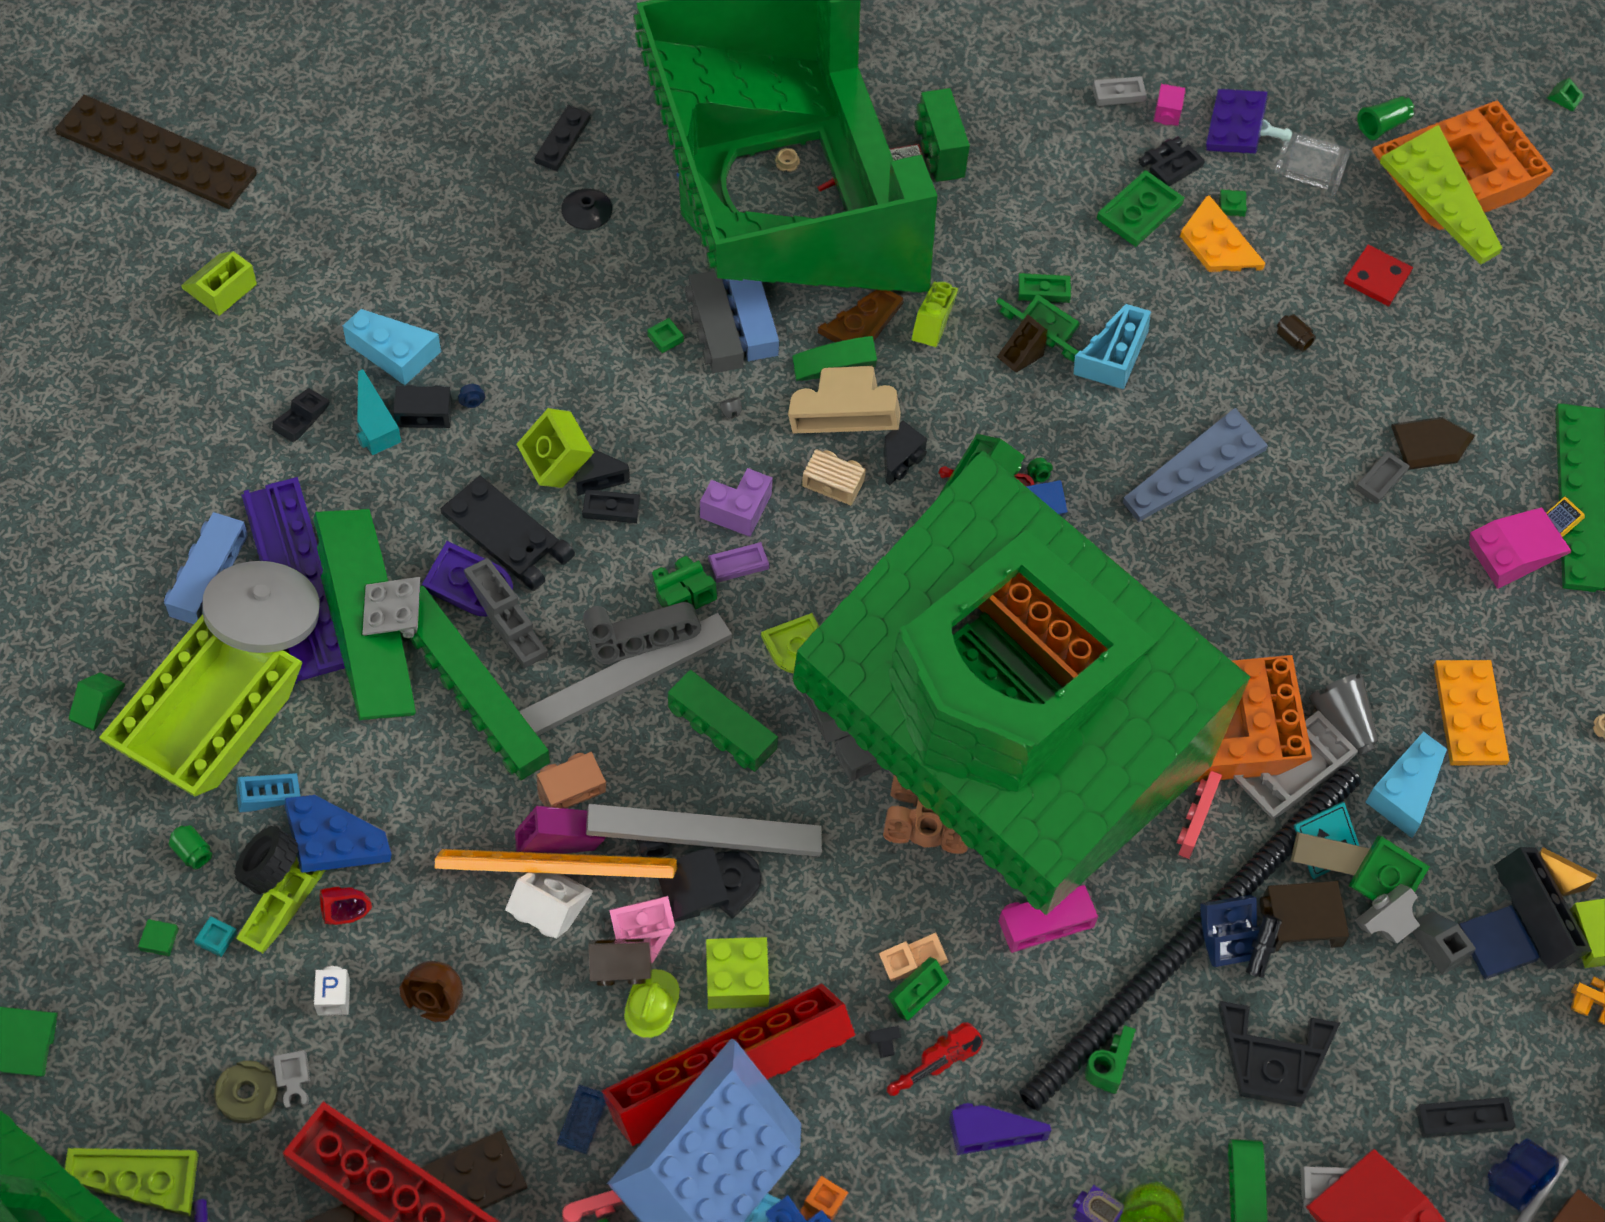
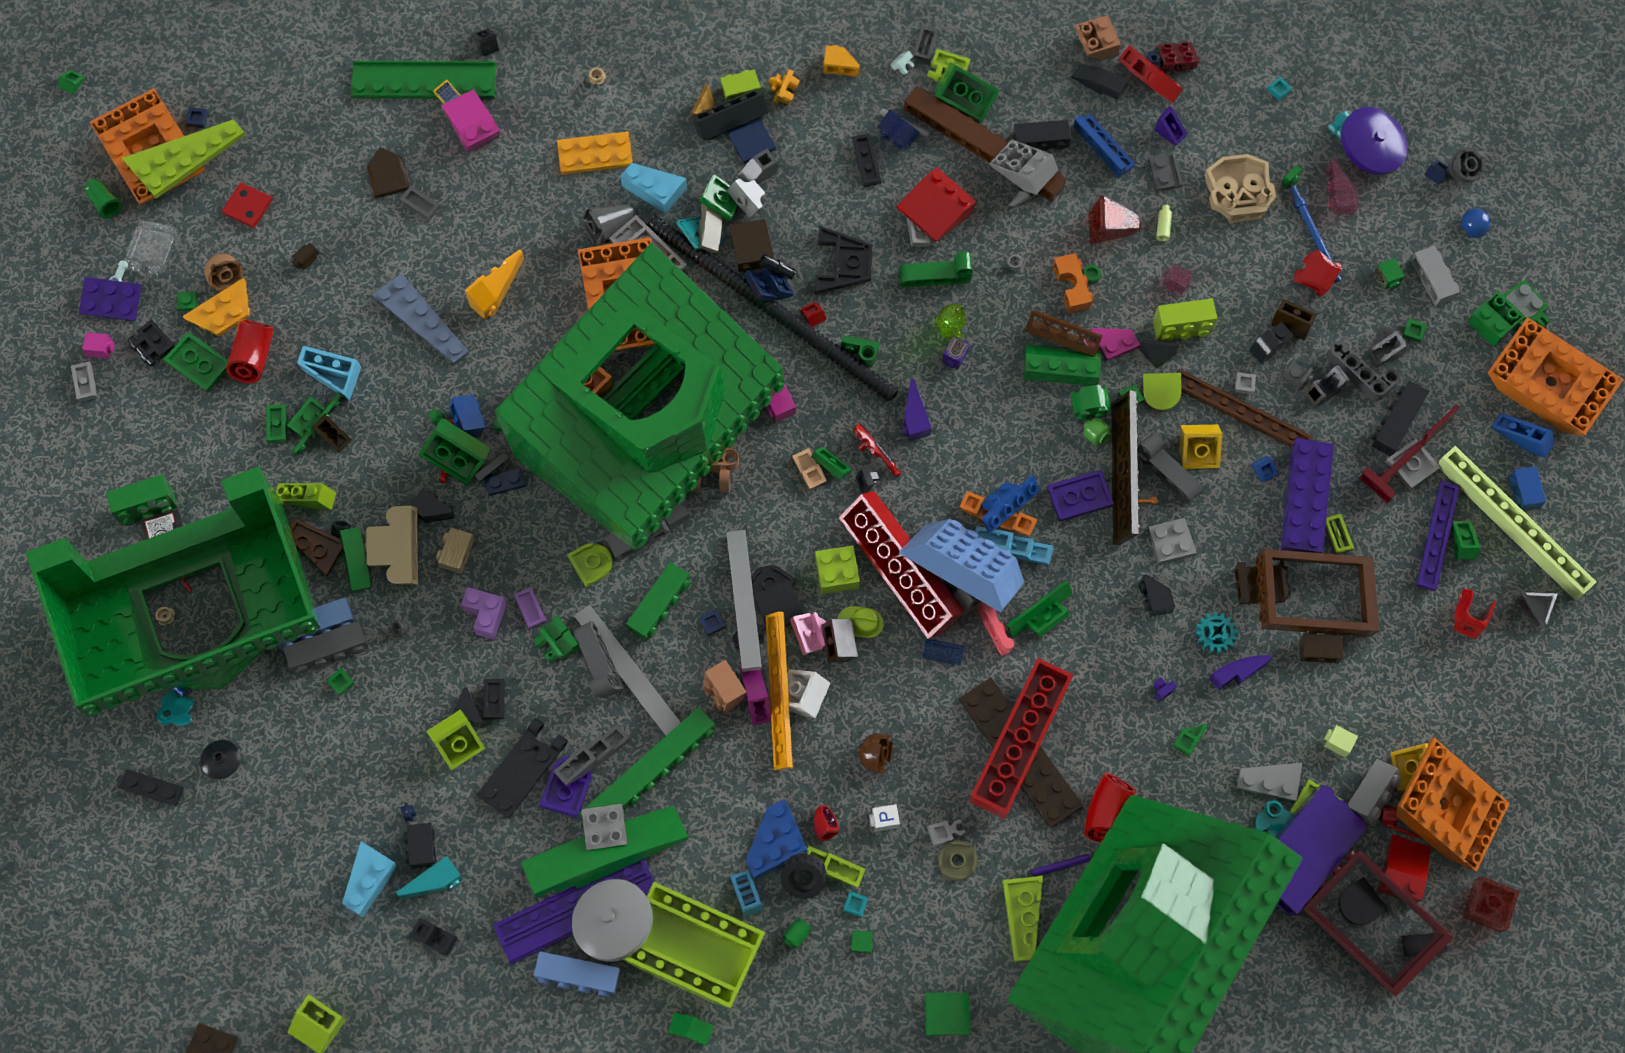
camera: 95 degrees left, 10 degrees up
(659, 167) = (177, 708): none -> teal plate
(679, 790) = (712, 622): none -> dark blue plate
(884, 348) = (336, 526): none -> black tile
(1154, 258) = (249, 351): none -> red brick
(1182, 998) = (813, 314): none -> red slope
(1231, 547) = (488, 292): none -> light orange wedge
(1274, 231) = (221, 269): none -> medium nougat cylinder
(1513, 224) = (196, 117): none -> dark blue plate

